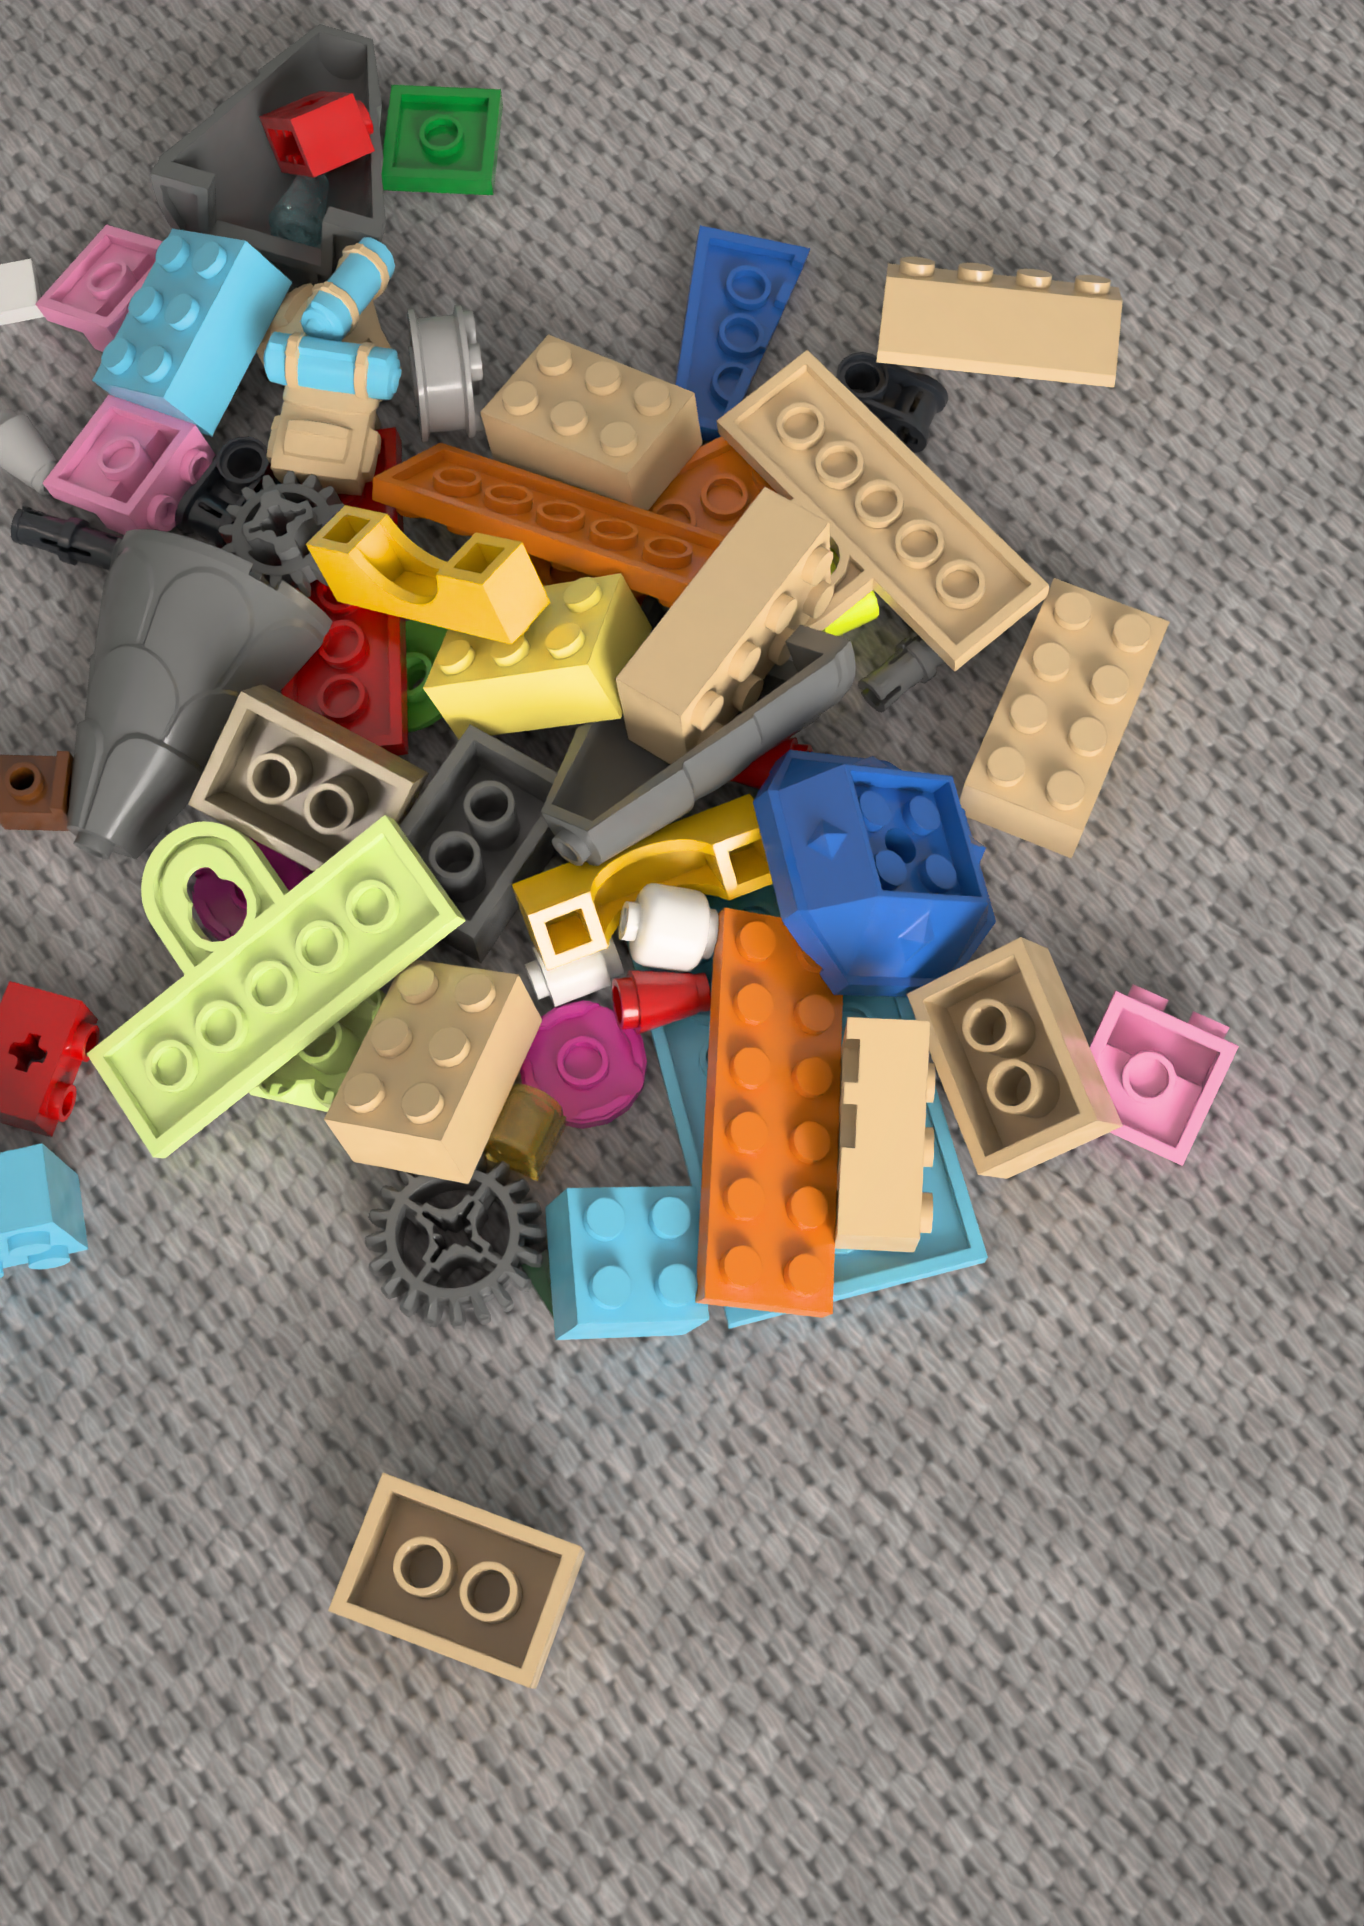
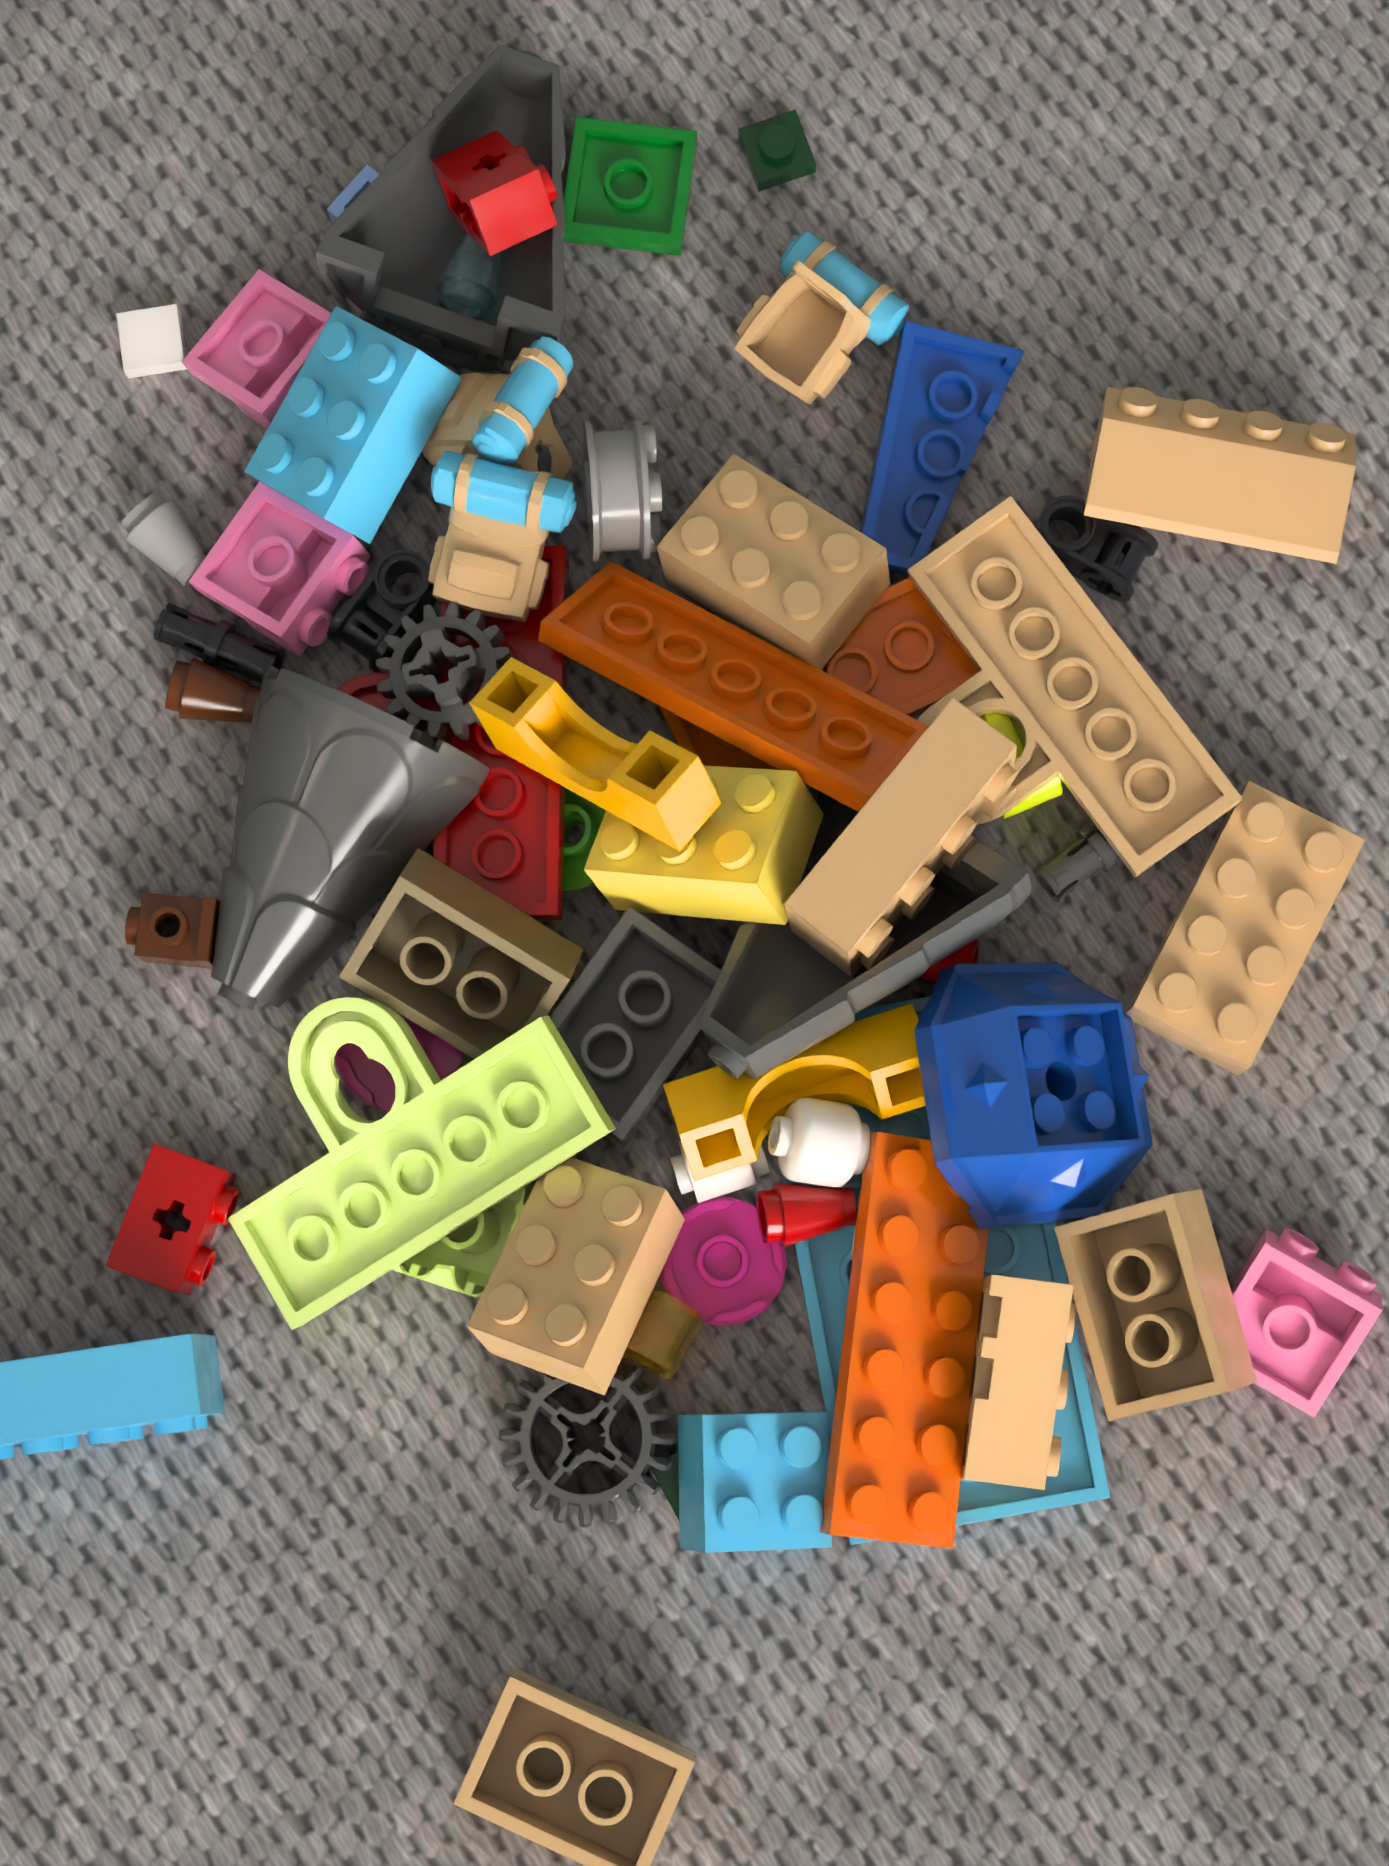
camera: 10 degrees right, 10 degrees up
(61, 581) = (209, 693): none -> reddish brown cone
(575, 107) = (777, 150): none -> dark green plate
(616, 231) = (817, 319): none -> tan piece

